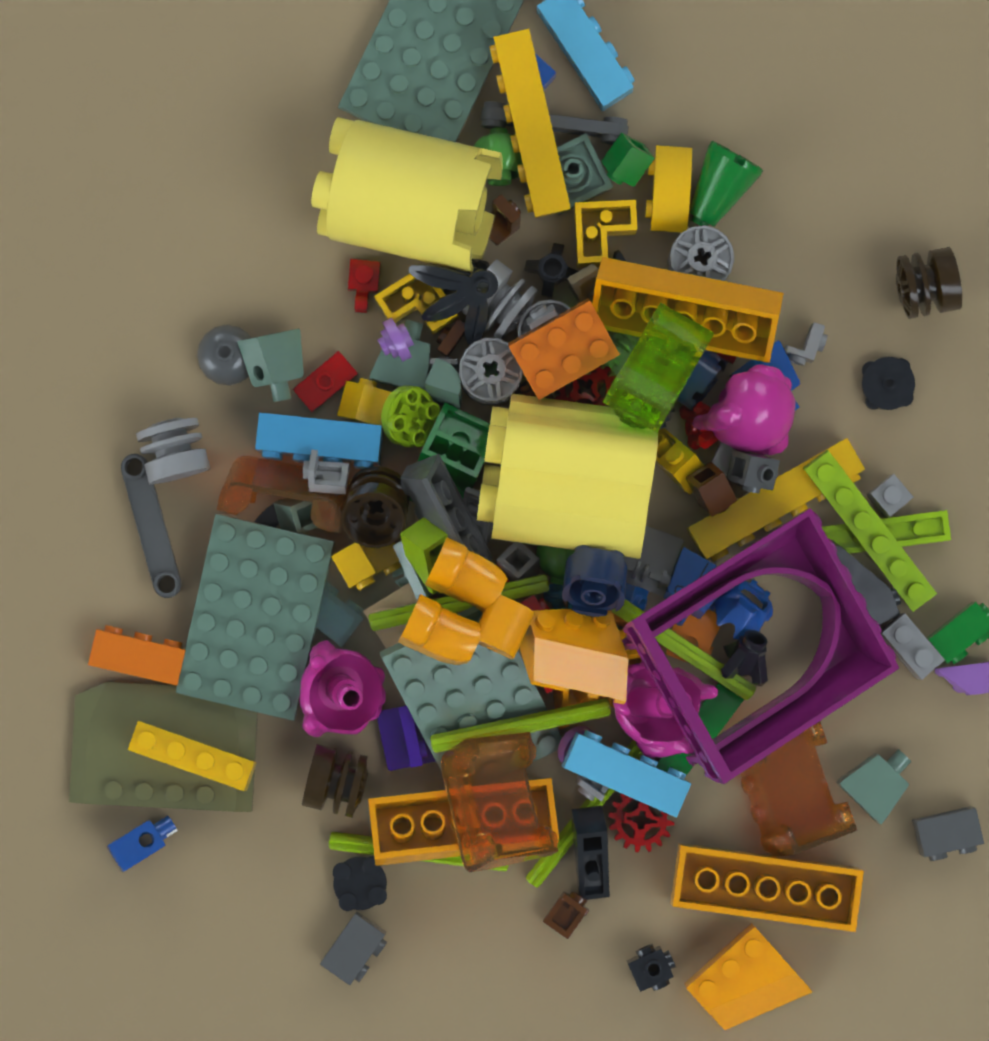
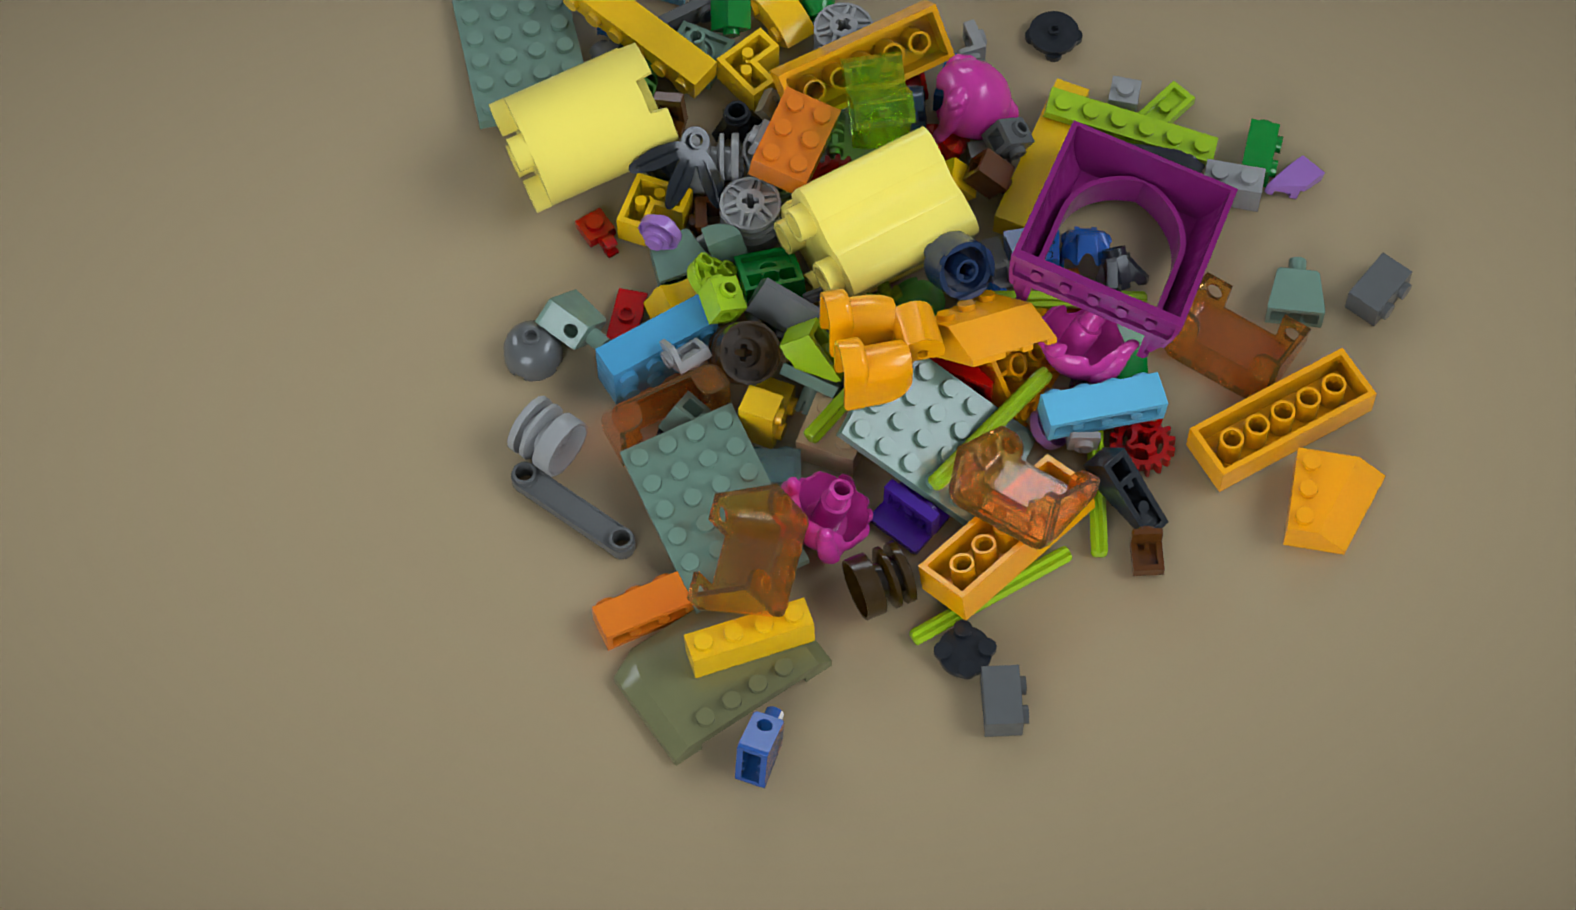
camera: 35 degrees left, 25 degrees down
(239, 701) = (758, 553): none -> clear orange windscreen
(390, 451) = (722, 299): none -> lime brick
(645, 957) = (1247, 541): black brick -> none

